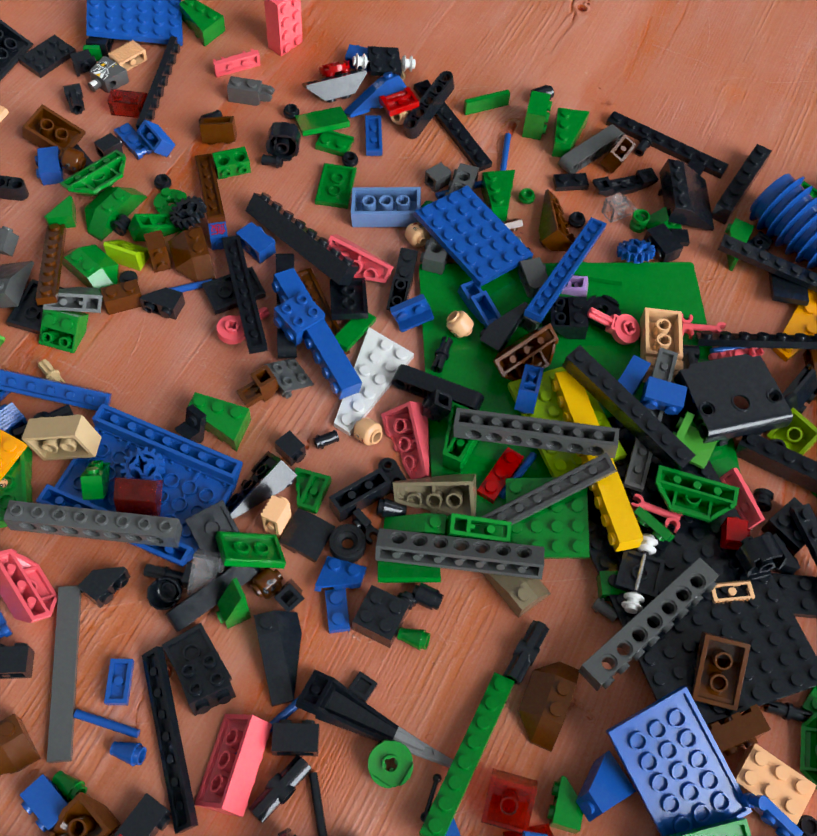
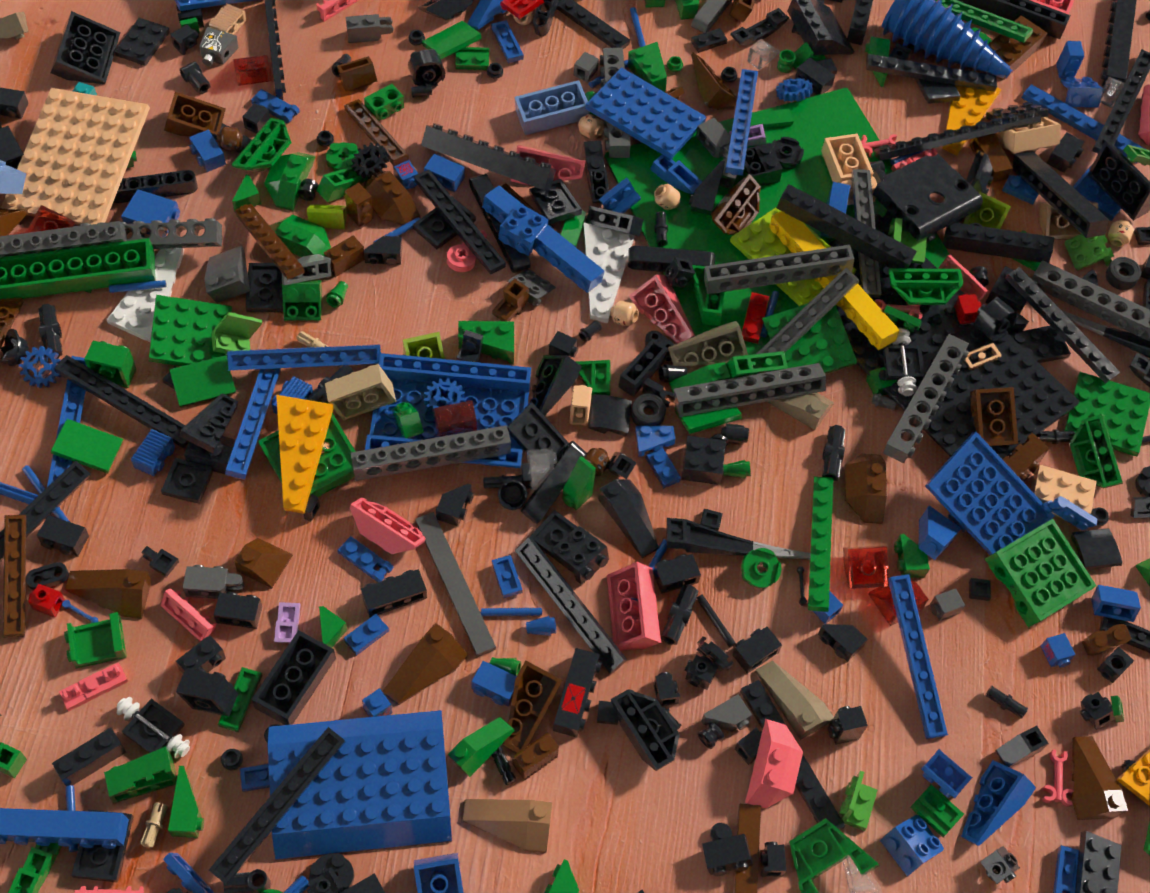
camera: 20 degrees left, 0 degrees up
(97, 333) = (336, 296): none -> green cone
(127, 276) = (338, 236): black plate -> none
(152, 410) = (424, 346): none -> lime slope
(155, 138) = (300, 97): blue brick -> none
(250, 550) = (572, 437): green tile -> none
(335, 186) = (492, 99): green tile -> none
(399, 334) = (614, 220): none -> black slope
(529, 389) = (754, 236): blue slope -> none
(623, 328) = (810, 162): coral piece -> none
(663, 395) = (872, 209): blue brick -> none

